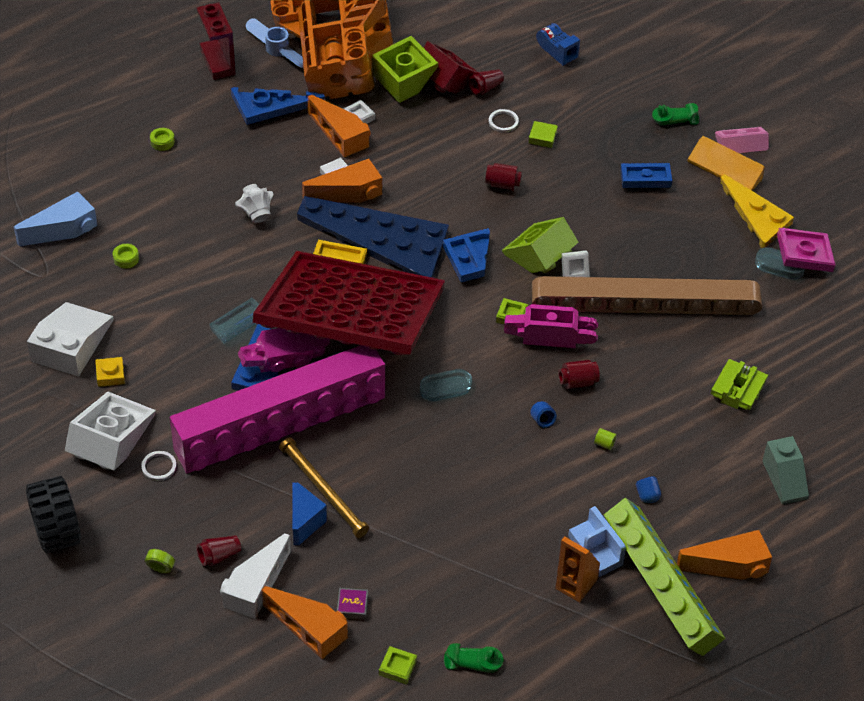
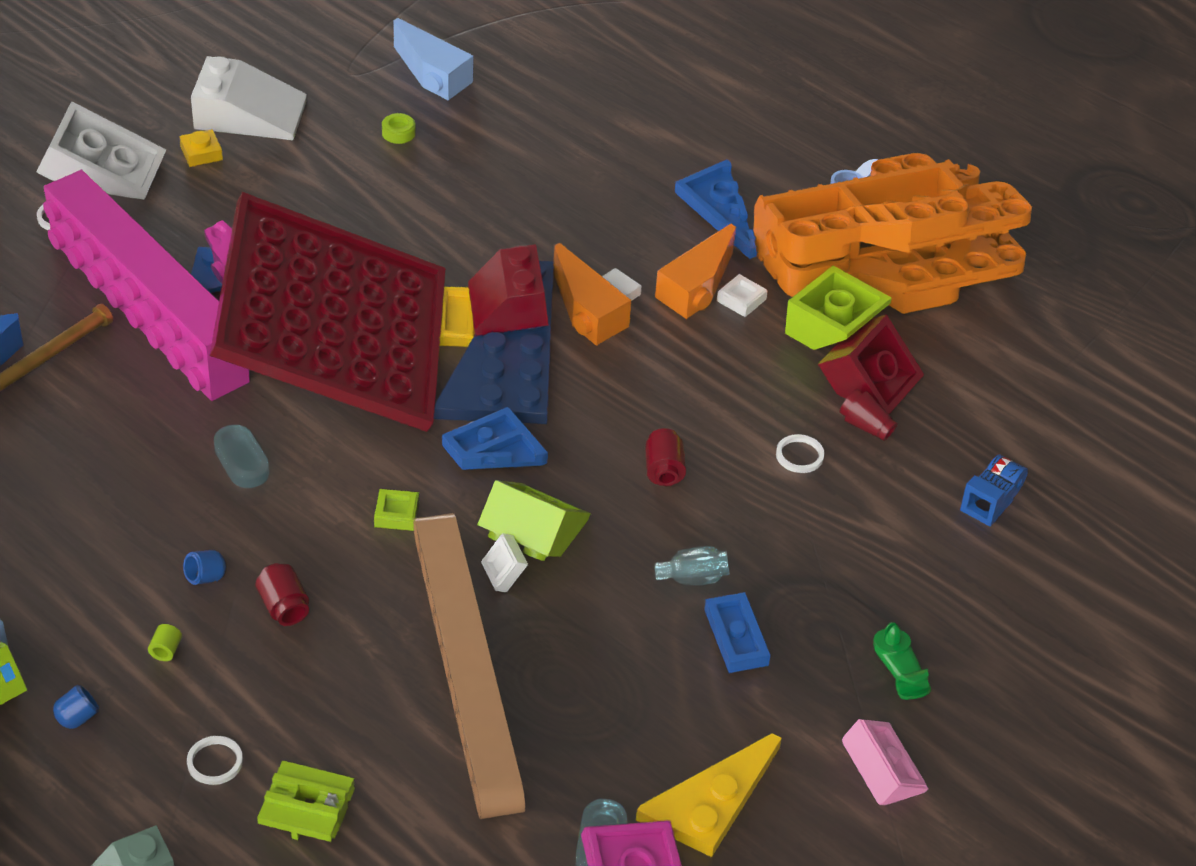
camera: 75 degrees right, 5 degrees down
(162, 139) = (617, 124): lime tile -> none
(220, 49) = (801, 119): dark red panel -> none
(255, 203) = (516, 214): white rock -> none
(345, 215) = (508, 292): none -> dark red slope
(543, 134) = (784, 499): lime tile -> none
(552, 326) = (360, 544): dark pink hinge -> none
(591, 182) = (694, 566): none -> clear light blue plant
(699, 416) = (214, 780): none -> white piece
(722, 160) = (805, 742): light orange slope -> none

